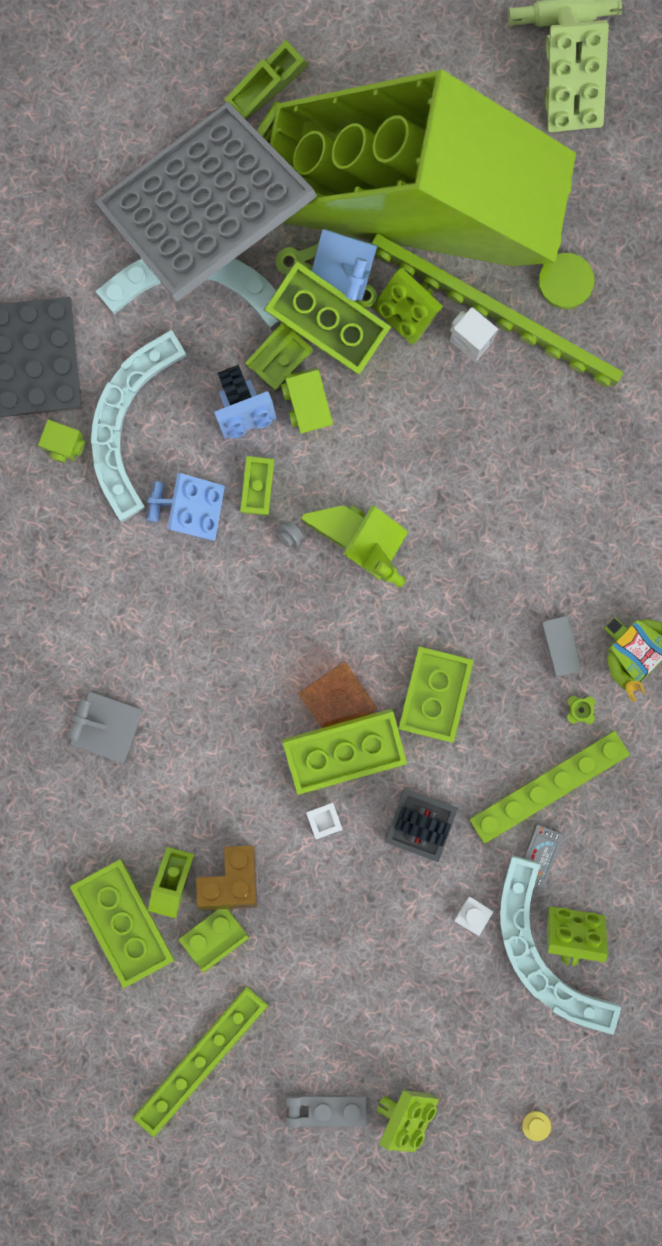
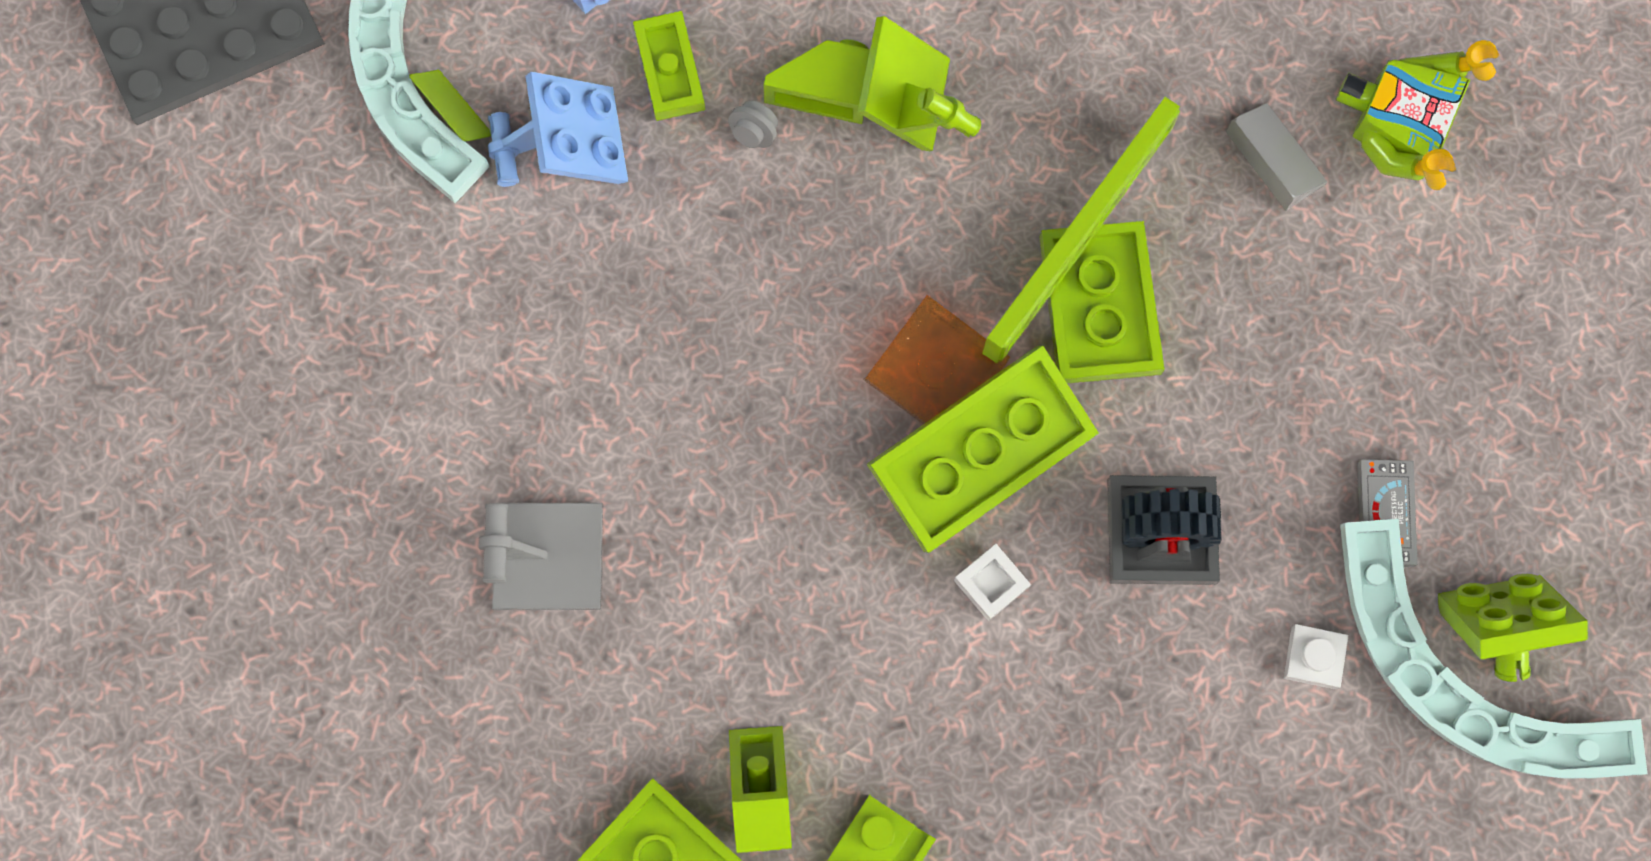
camera: 25 degrees left, 10 degrees down
(61, 441) = (306, 101): lime brick -> none
(136, 468) = (450, 105): none -> lime sticker
(234, 889) = (879, 753): pearl gold brick -> none
(437, 657) = (1081, 231): none -> lime tile
(549, 787) = (1352, 392): lime plate -> none
(588, 706) = (1364, 235): lime plate -> none

